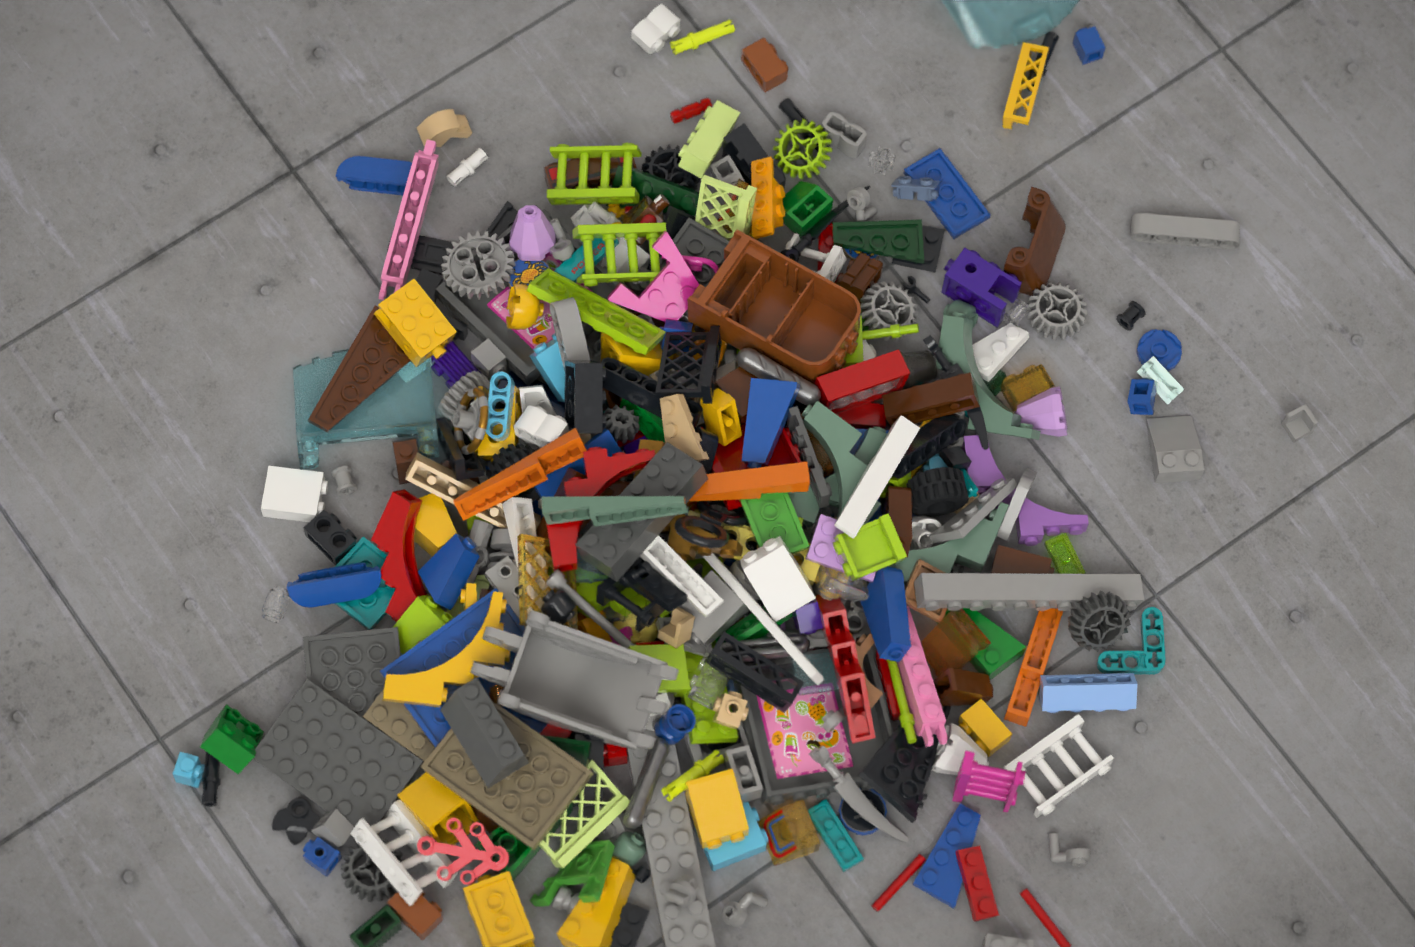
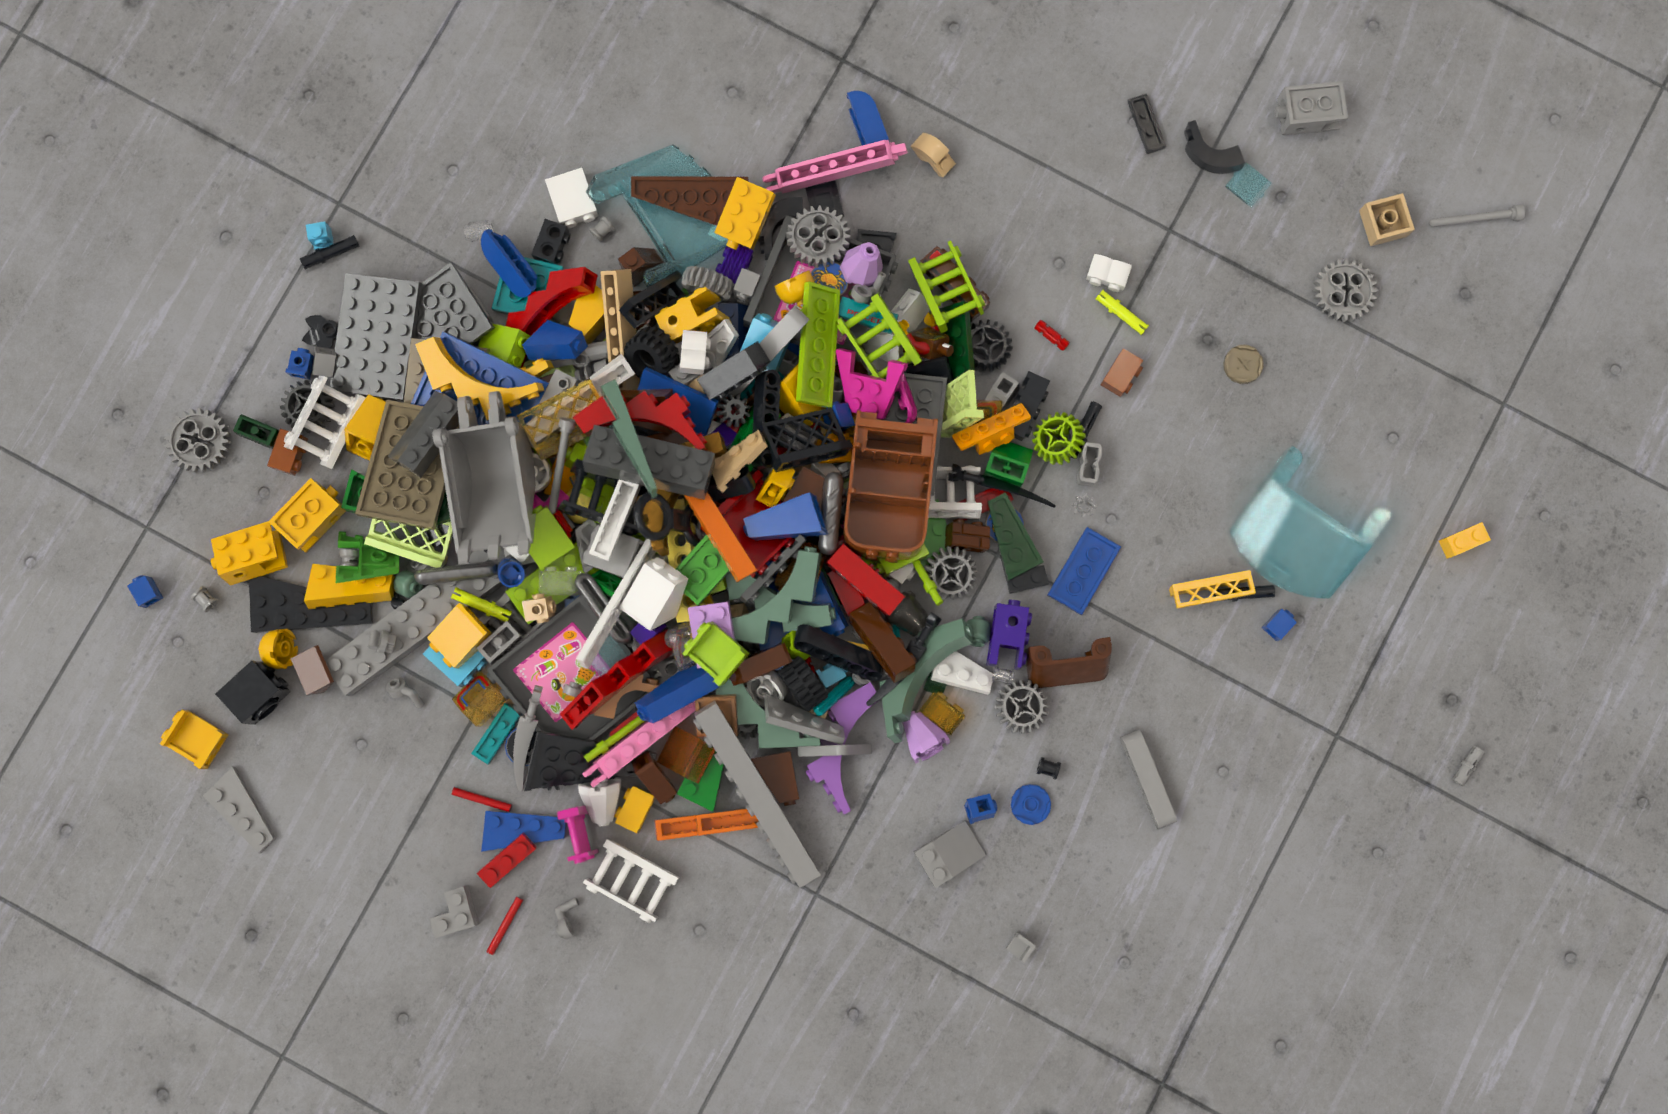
camera: 65 degrees right, 15 degrees up
(232, 739) = (355, 253): green slope -> none
(466, 853) = (341, 466): coral plant -> none
(467, 167) = (910, 188): white pin -> none
(473, 421) = (674, 295): light grey piece -> none
(495, 396) = (684, 309): medium azure beam -> none
(521, 475) = (645, 358): orange slope -> none
(558, 606) = (543, 437): black head -> none
(601, 214) = (918, 313): white pin -> none
(656, 587) = (596, 505): black plate -> none
(678, 629) = (580, 536): tan panel -> none
(709, 138) = (1021, 360): yellowish green brick -> none
(751, 679) = (570, 610): black fence -> none
(859, 199) = (1033, 504): light grey plate -> none
(876, 476) = (778, 630): white slope -> none
(913, 289) = (984, 586): black hand -> none
(923, 187) = (1070, 536): sand blue hinge -> none
(955, 457) = (845, 684): black tile -> none
(1064, 555) = (809, 808): clear neon green plate -> none
(1088, 692) = (702, 877): light blue brick -> none
(1104, 626) = (762, 860): dark grey gear -> none
(1142, 657) = (748, 910): teal beam -> none
(1165, 383) = (1002, 820): light aqua hinge -> none

